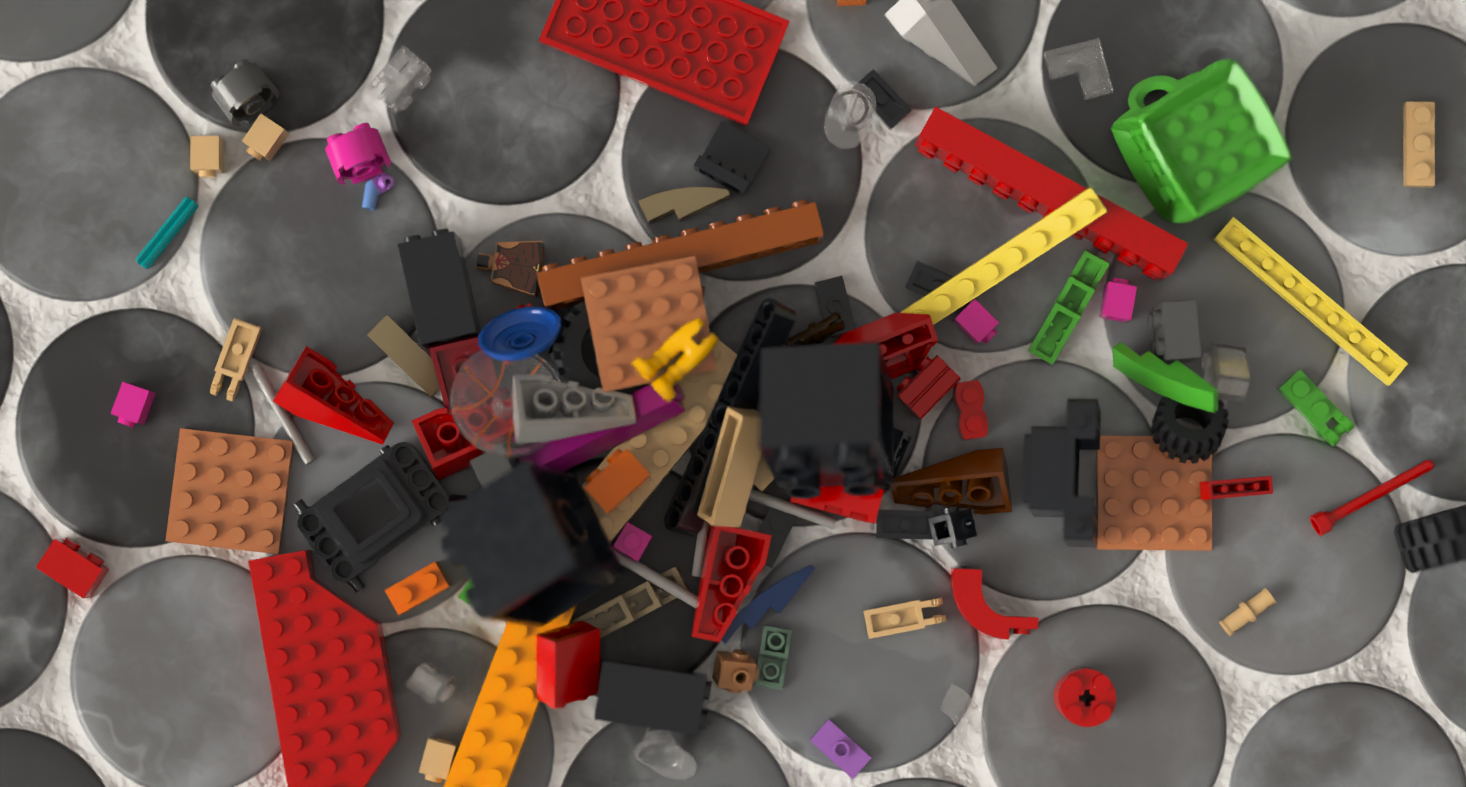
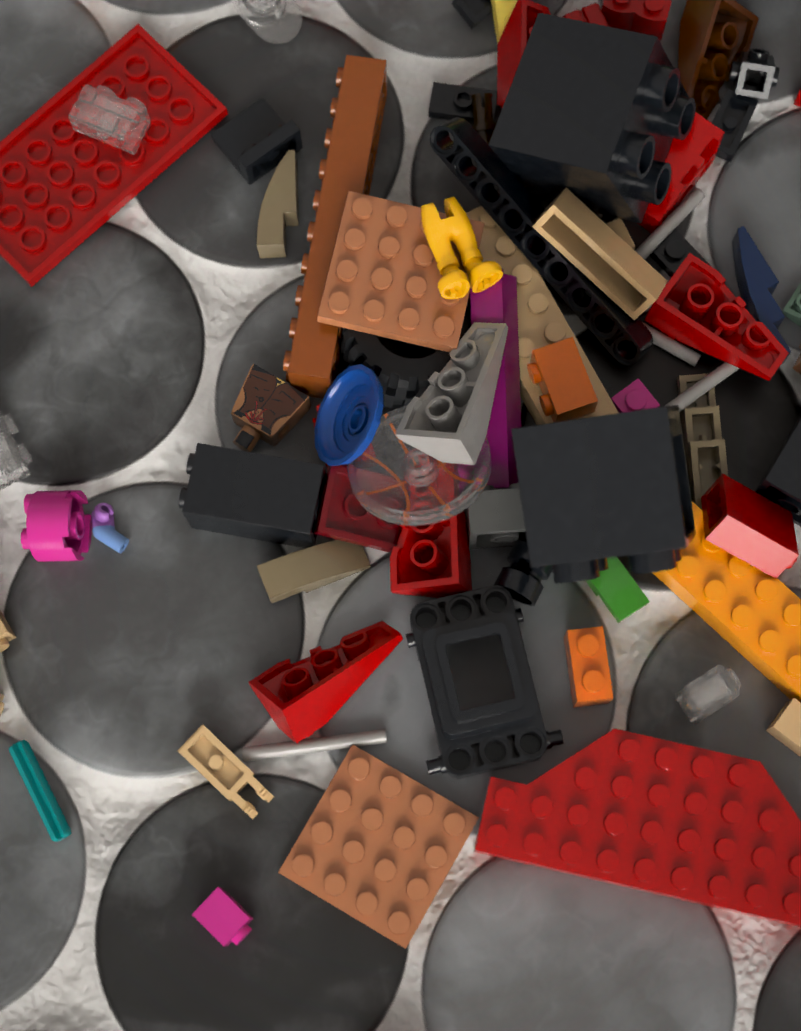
camera: 65 degrees left, 10 degrees down
(693, 40) = (110, 118): none -> clear brick

